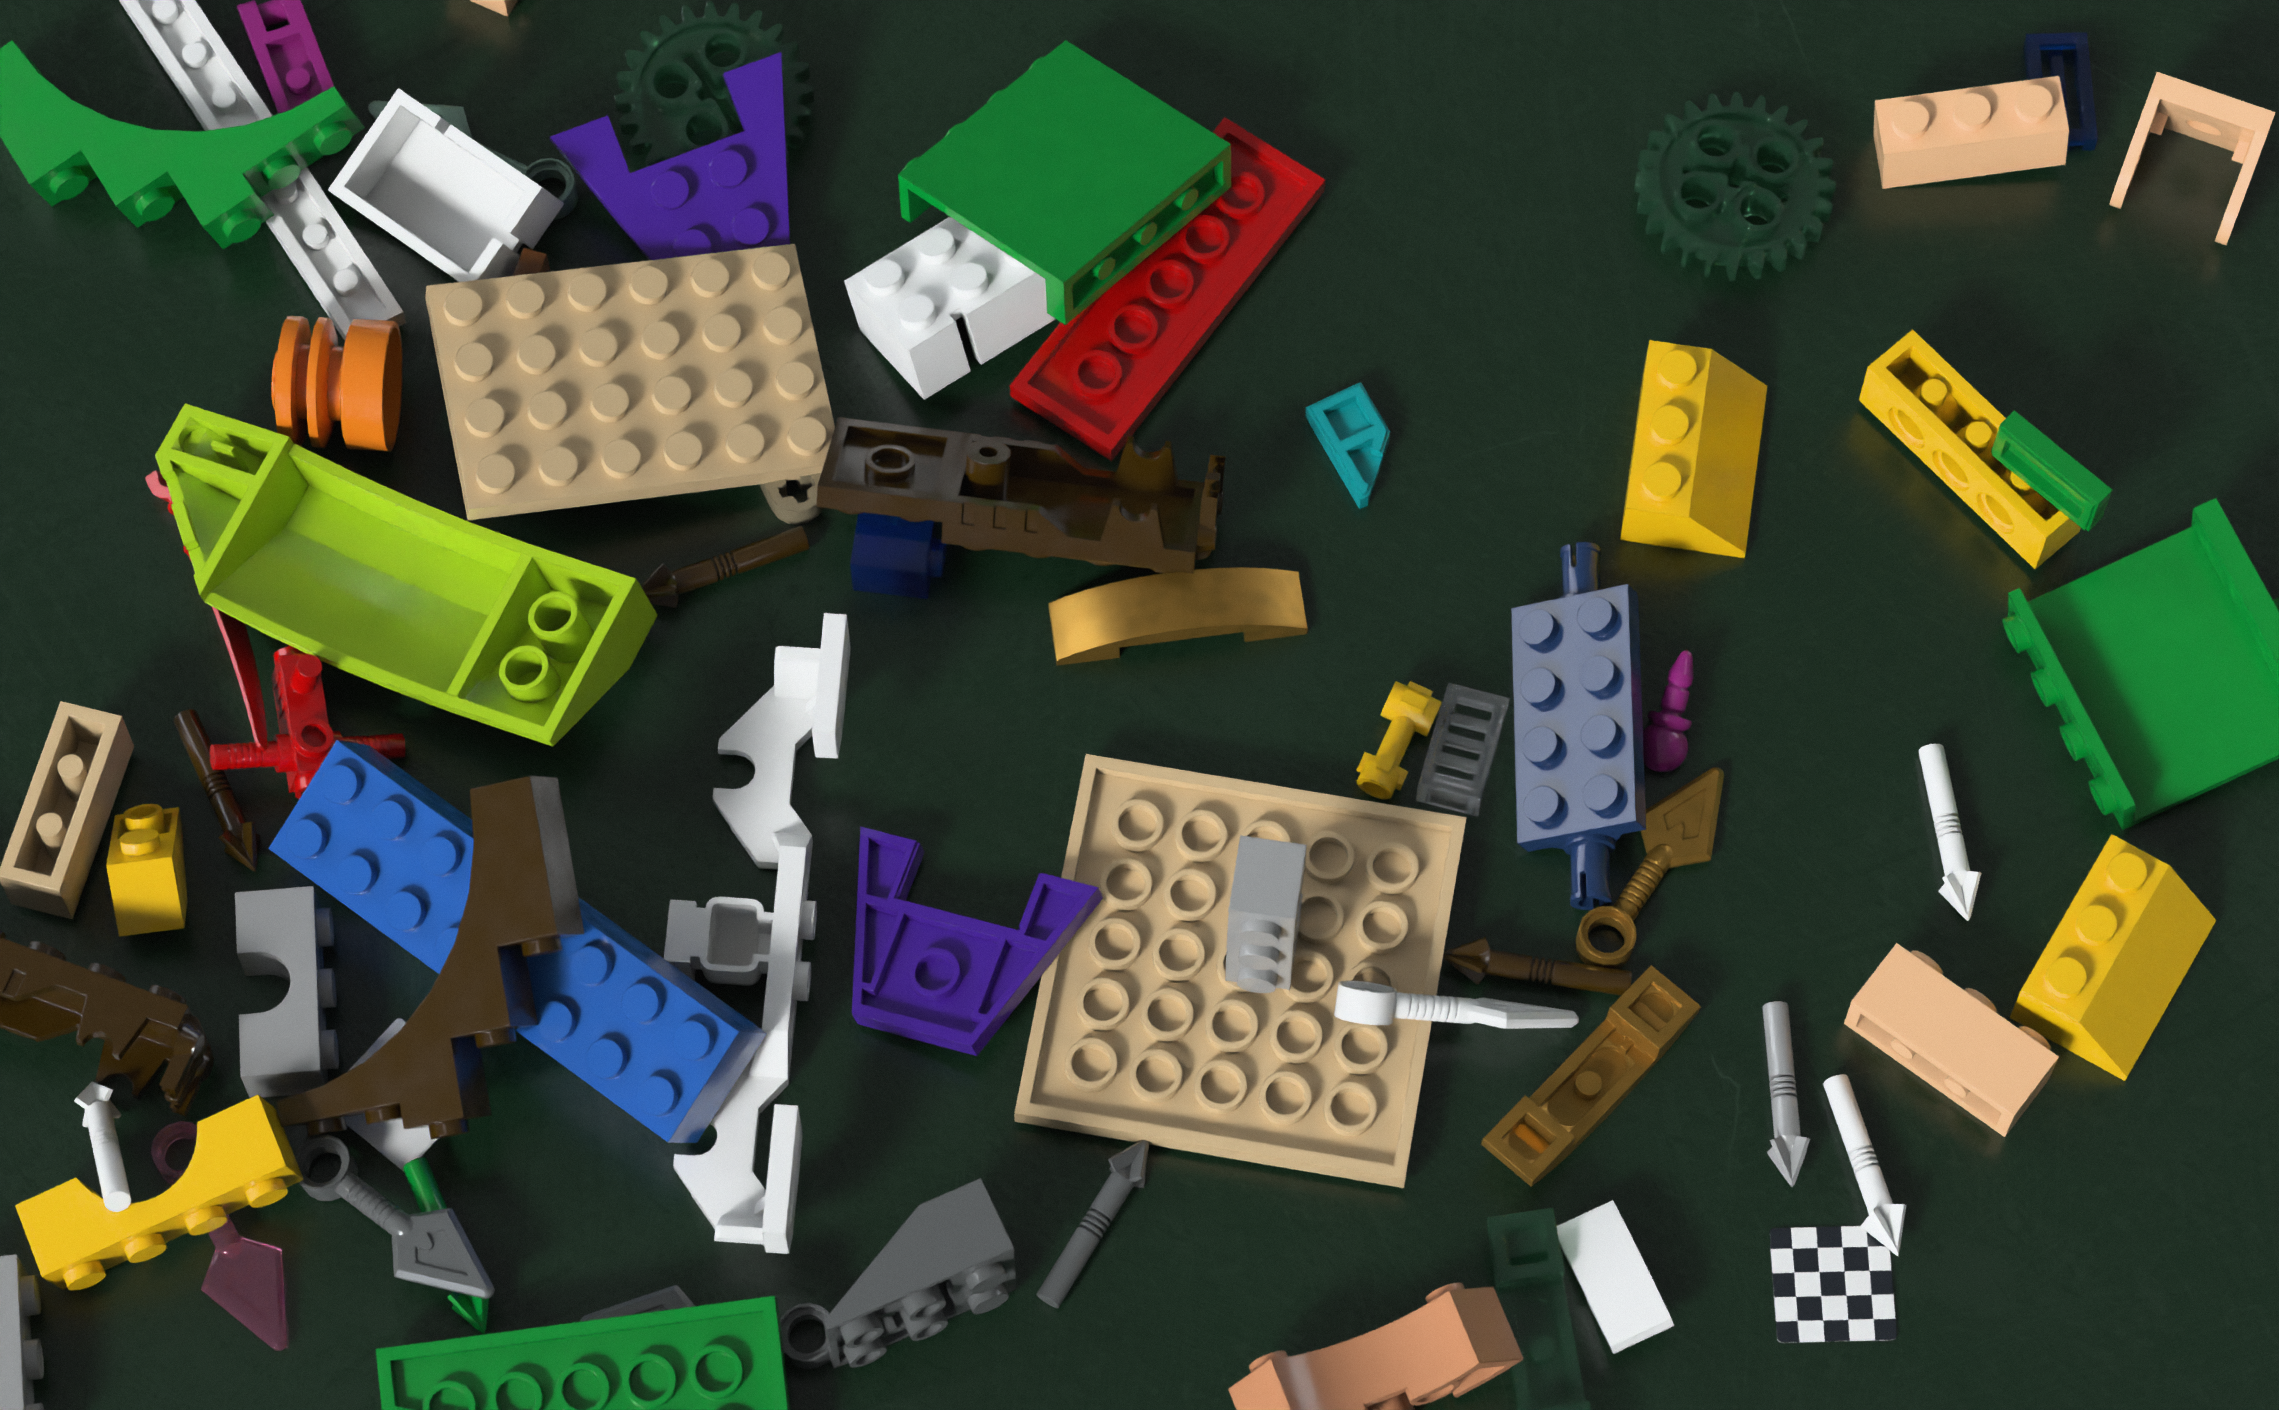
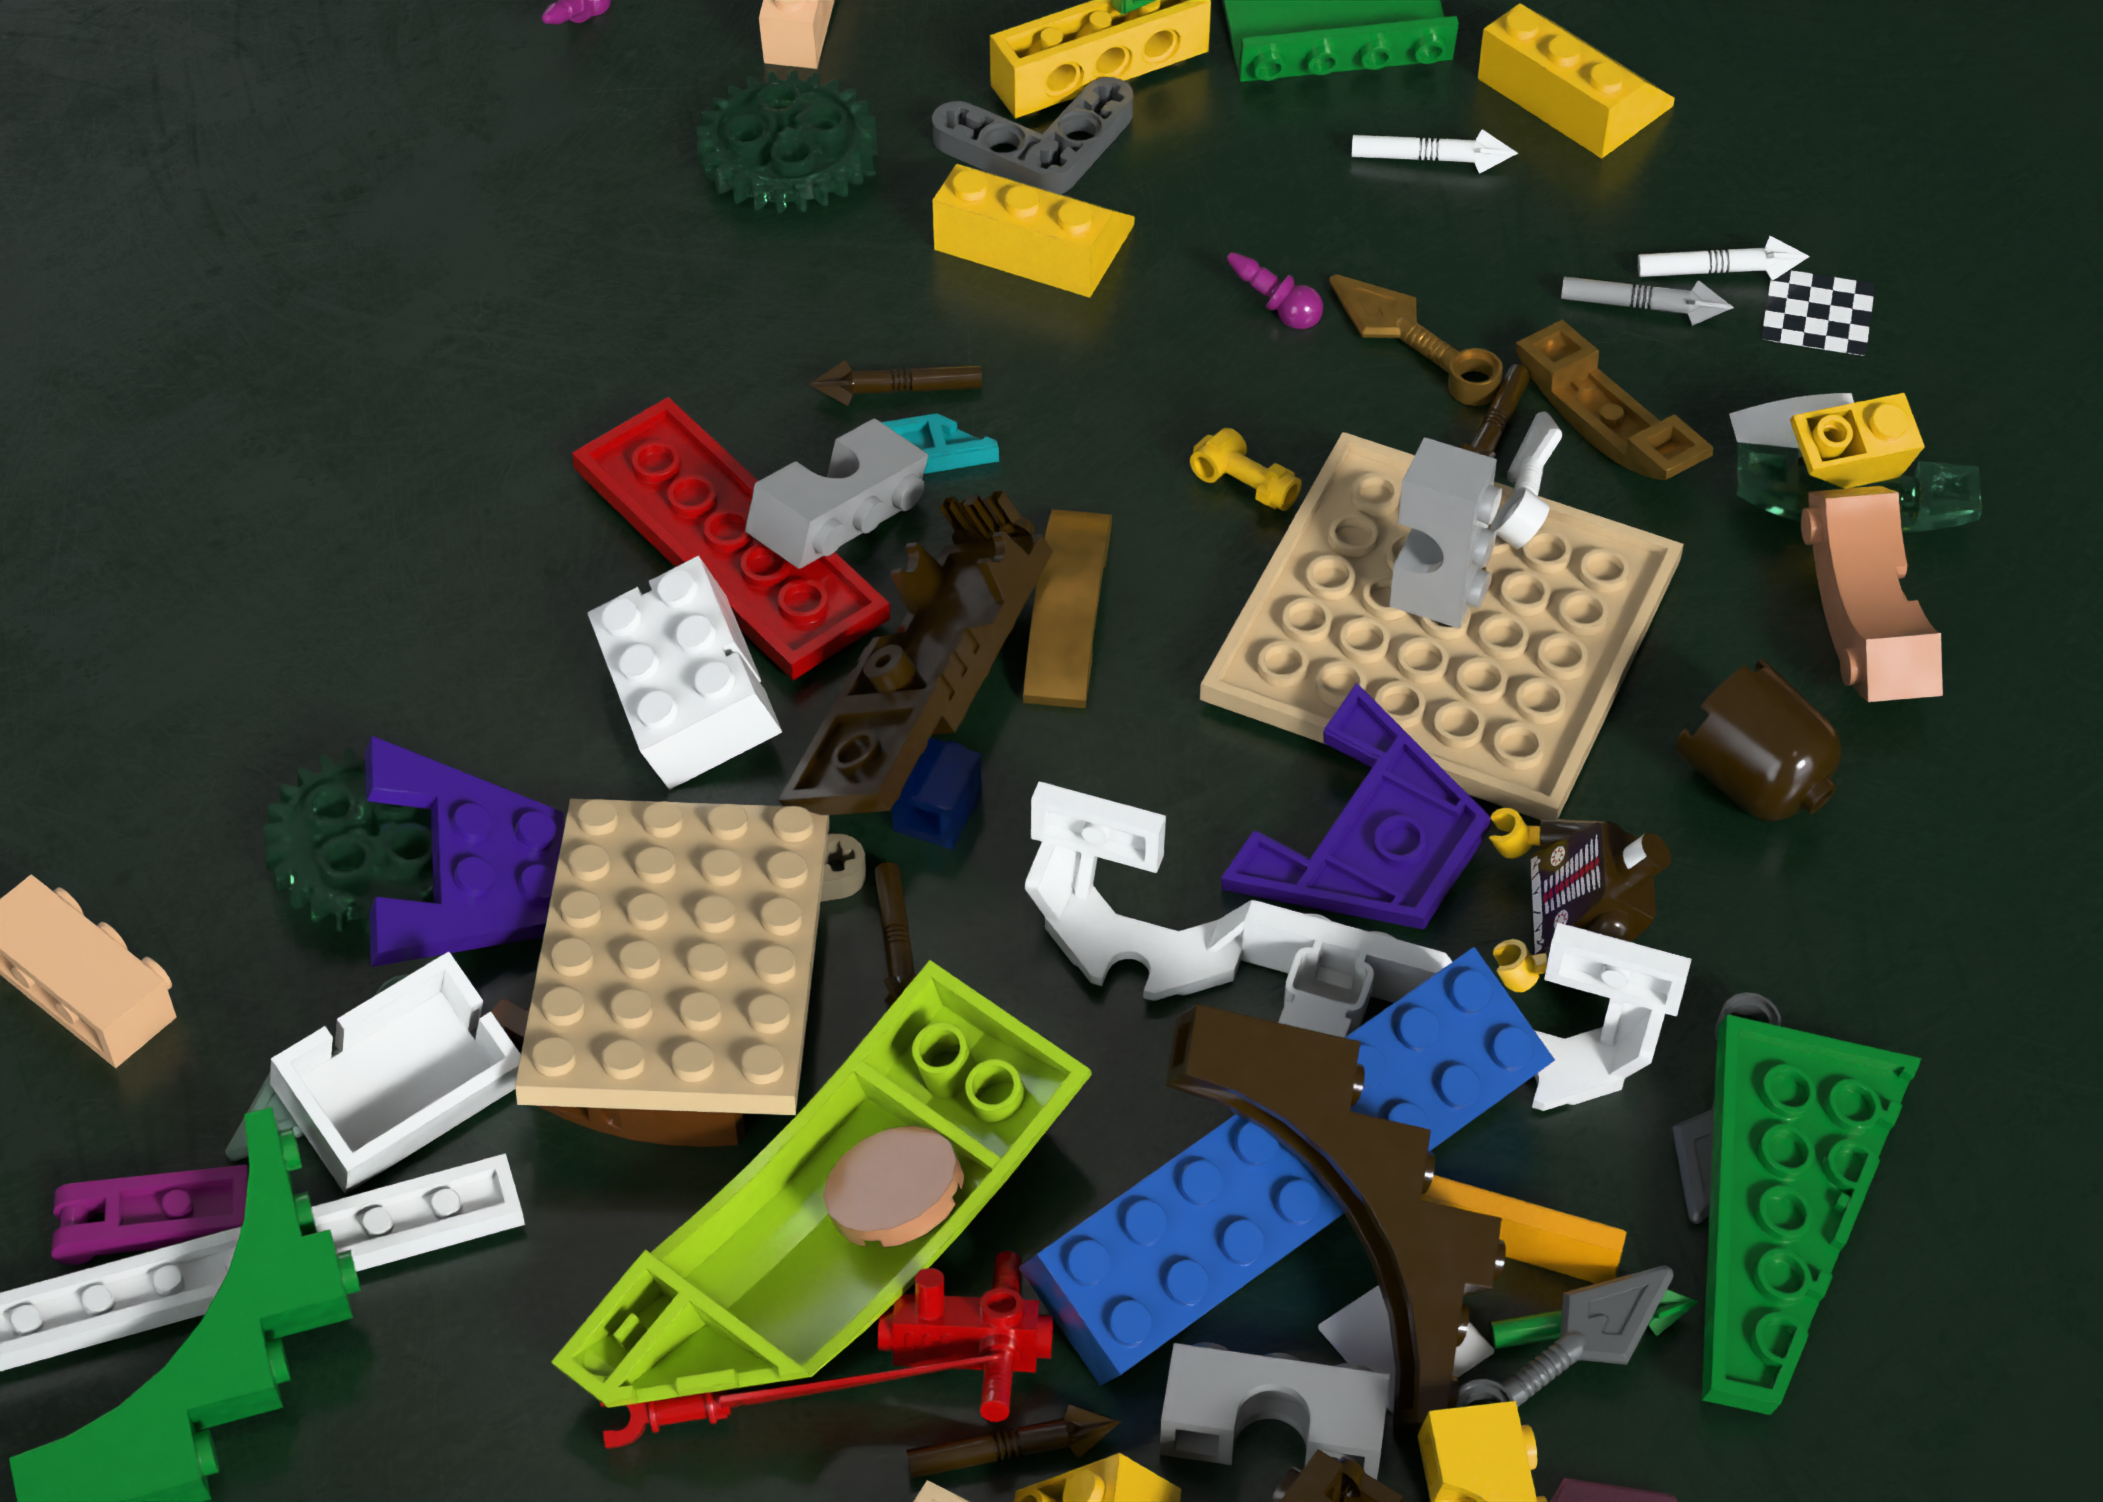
camera: 75 degrees left, 15 degrees down
(330, 383) = (581, 1210): orange wheel -> none
(419, 620) = (893, 1186): none -> nougat tile
(518, 1160) = (1540, 1233): none -> light orange tile
(898, 1151) = (1581, 877): none -> torso
(936, 1266) = (1723, 893): dark grey slope -> none
(1071, 175) = (594, 552): green panel -> none
(1127, 1171) = (1625, 746): dark grey piece -> none
(1130, 1291) = (1764, 745): none -> dark brown cylinder
(1175, 348) = (812, 515): none -> light grey arch
(1409, 338) = (843, 382): none -> dark brown piece
(1451, 791) = (1299, 435): clear slope -> none
(1564, 1316) = (1859, 441): none -> yellow slope
(1579, 722) = (1270, 339): plate -> none
(1811, 434) = (971, 131): none -> dark grey beam
(1951, 1038) = (1625, 180): light nougat brick -> none

